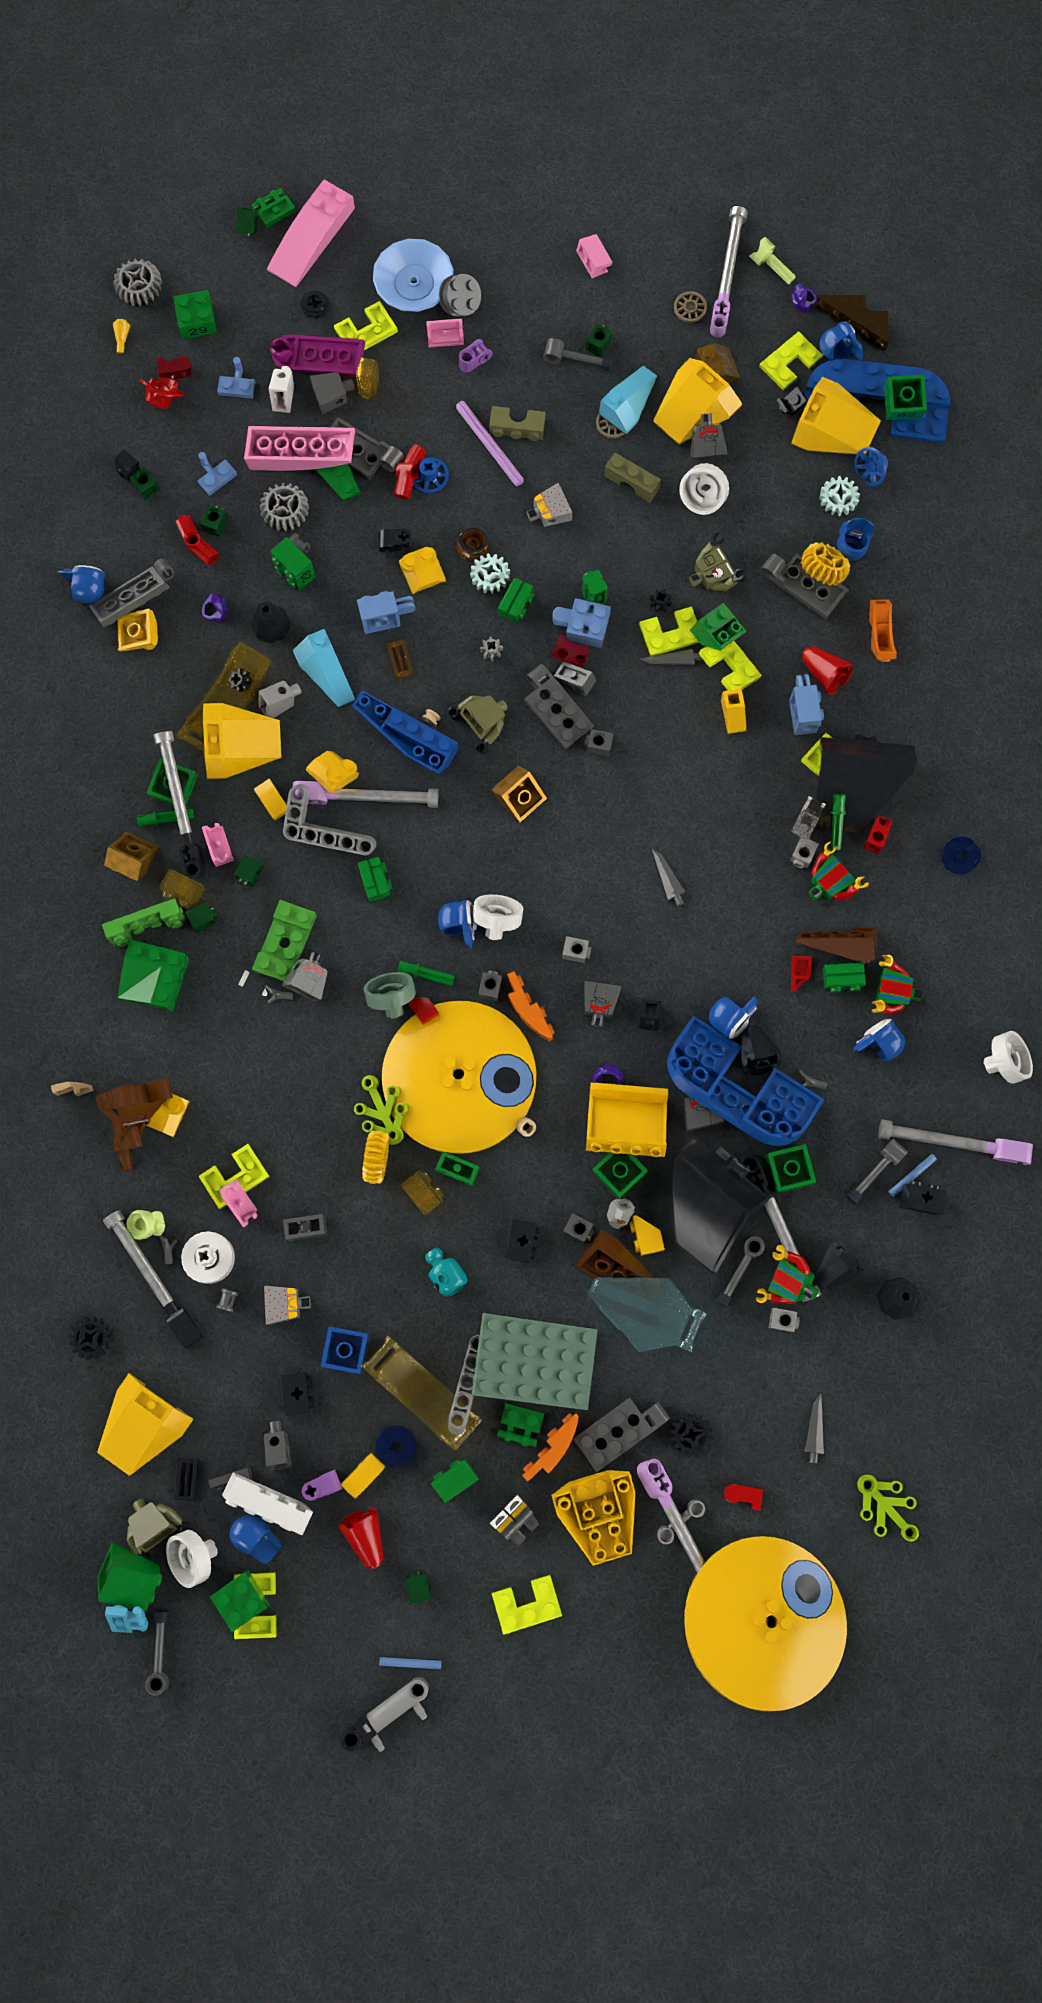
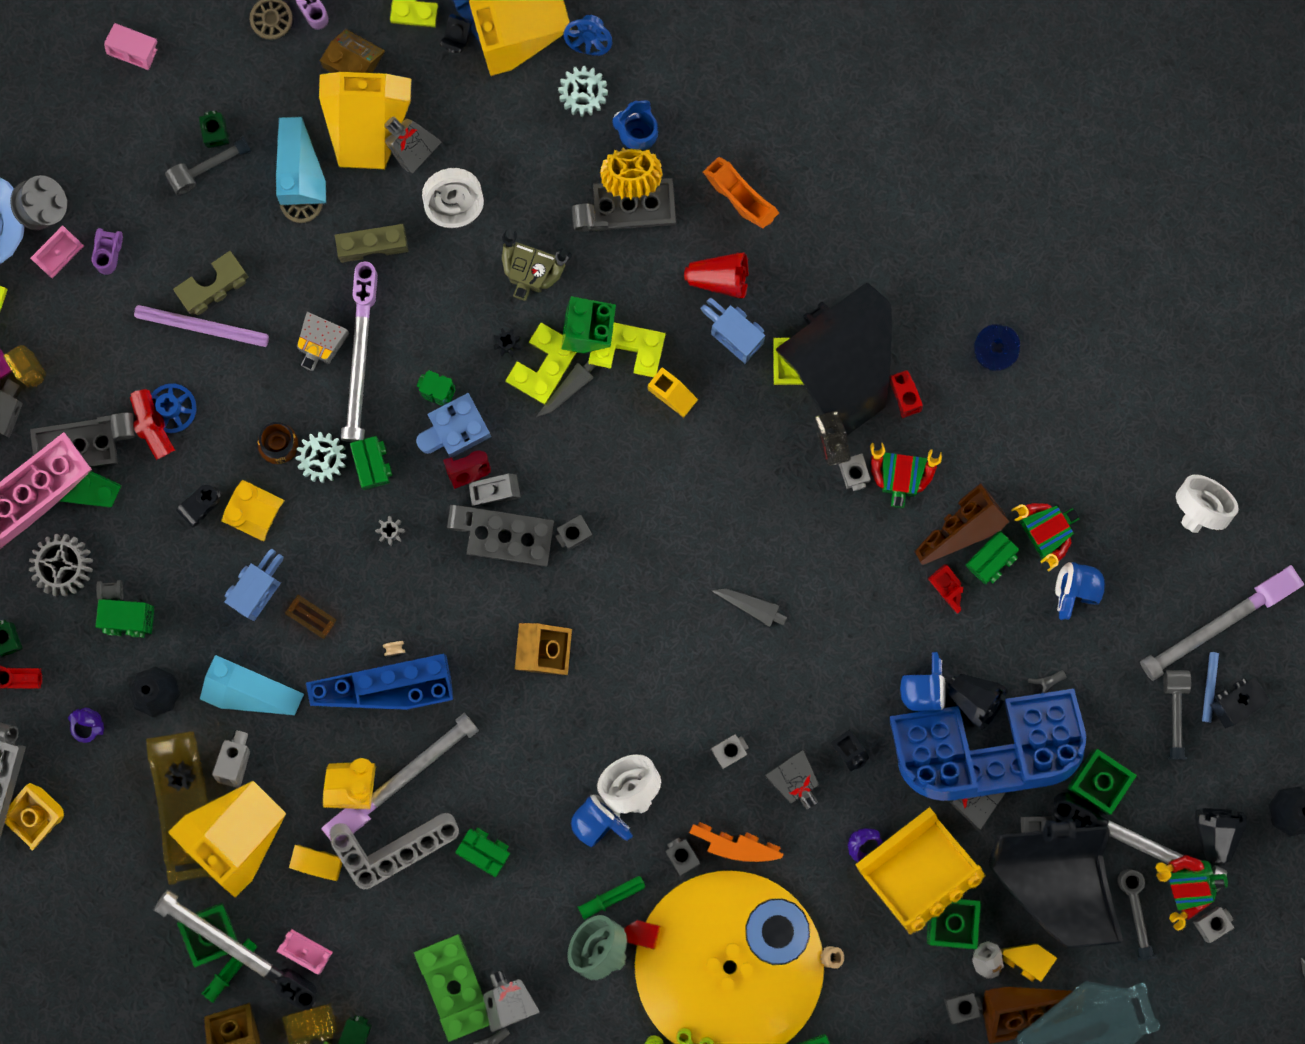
camera: 45 degrees left, 5 degrees up
(248, 871) = (358, 951): dark green brick -> none
(483, 716) = (443, 605): olive torso -> none
(596, 508) = (352, 431): none -> flat silver piece
(837, 823) = (855, 409): green axle -> none

